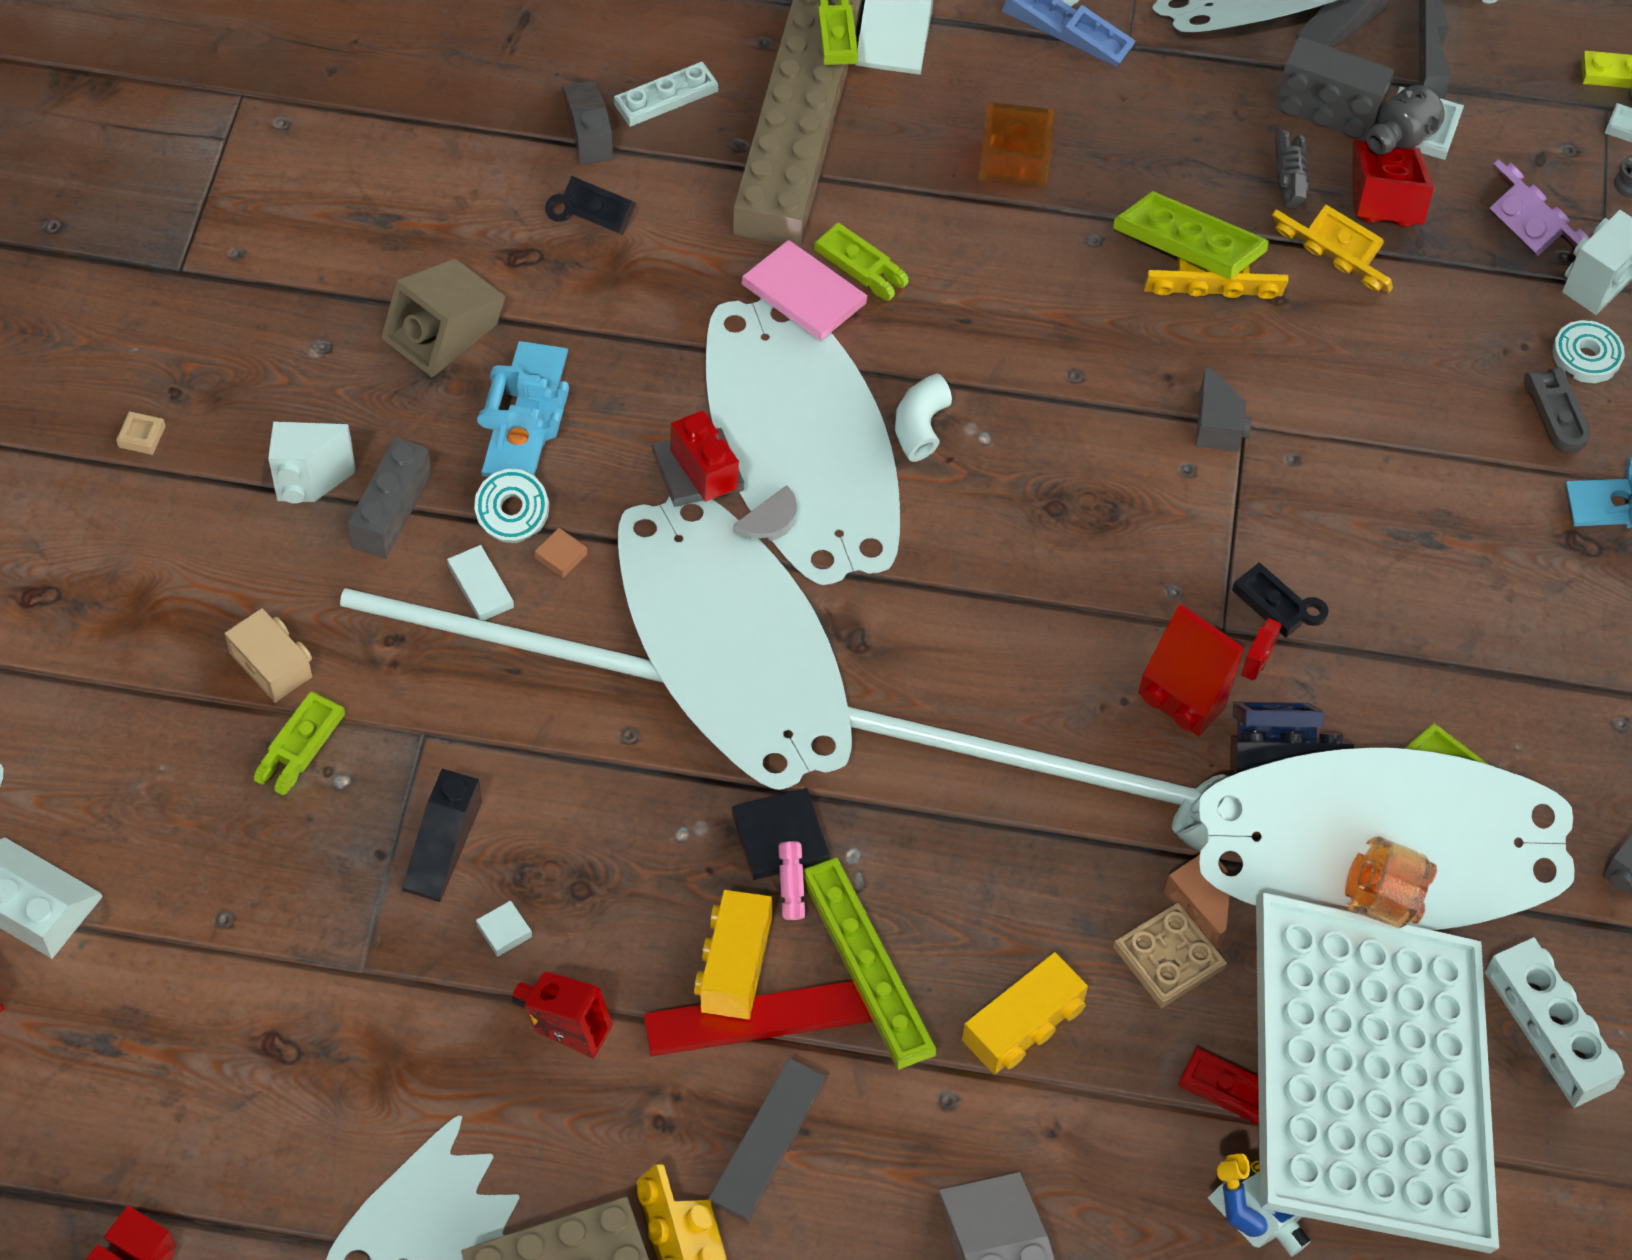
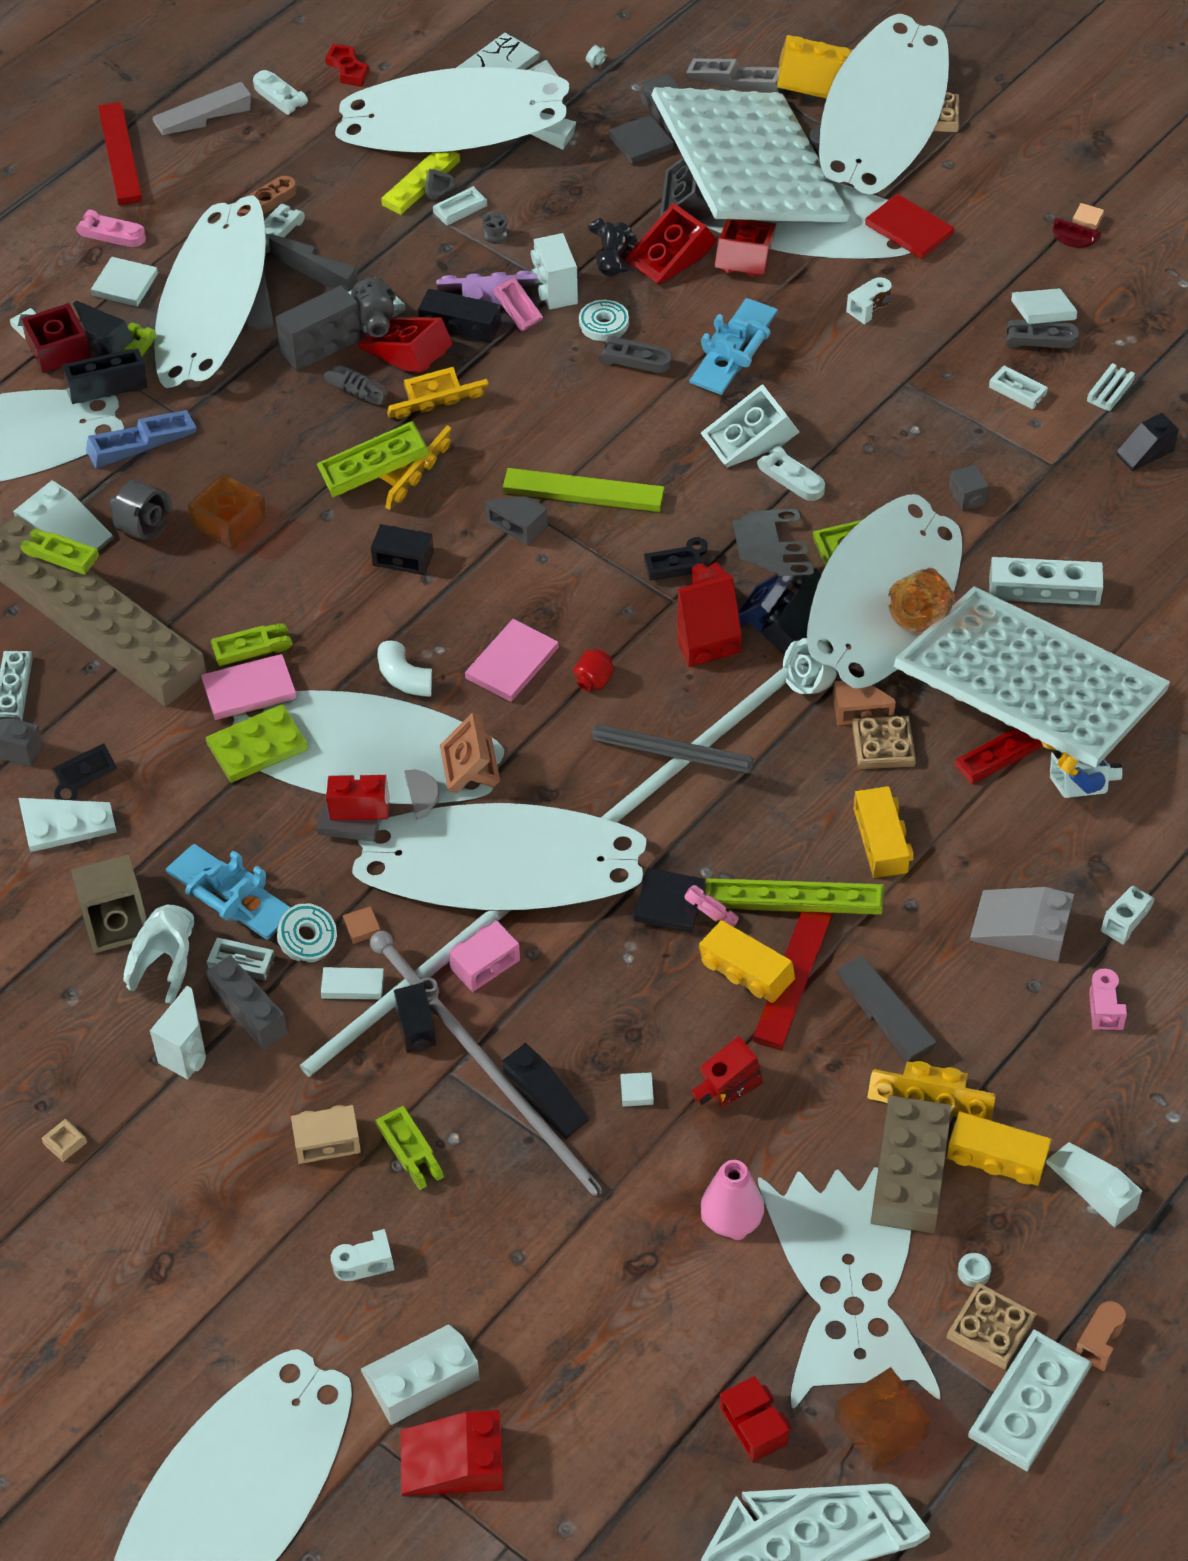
camera: 55 degrees left, 5 degrees down
(135, 772) = (362, 1259): none -> light aqua leg
(398, 1101) = (732, 1202): none -> bright pink cone
(425, 379) = (162, 933): none -> light aqua hair
(454, 660) = (414, 1017): none -> black slope
(455, 490) = (255, 968): none -> light aqua tile
(498, 659) = (382, 943): none -> light grey bar
(523, 225) = (62, 822): none -> light aqua wing
(585, 686) = (484, 956): none -> bright pink brick
(735, 335) = (256, 743): none -> lime plate
(844, 538) = (469, 755): none -> nougat bracket
(958, 71) = (141, 510): none -> dark grey brick
(992, 732) = (673, 748): none -> dark grey axle
(1016, 511) = (511, 660): none -> bright pink tile
(1052, 596) = (593, 670): none -> red head
(1090, 328) = (402, 549): none -> black brick
(1316, 460) = (583, 490): none -> lime tile
(1360, 668) = (760, 544): none -> dark grey piece
(1470, 210) = (462, 314): none -> black brick
(1508, 661) = (792, 474): none -> light aqua plate
(1533, 254) = (518, 304): none -> bright pink tile
(1540, 580) = (750, 429): none -> light aqua slope

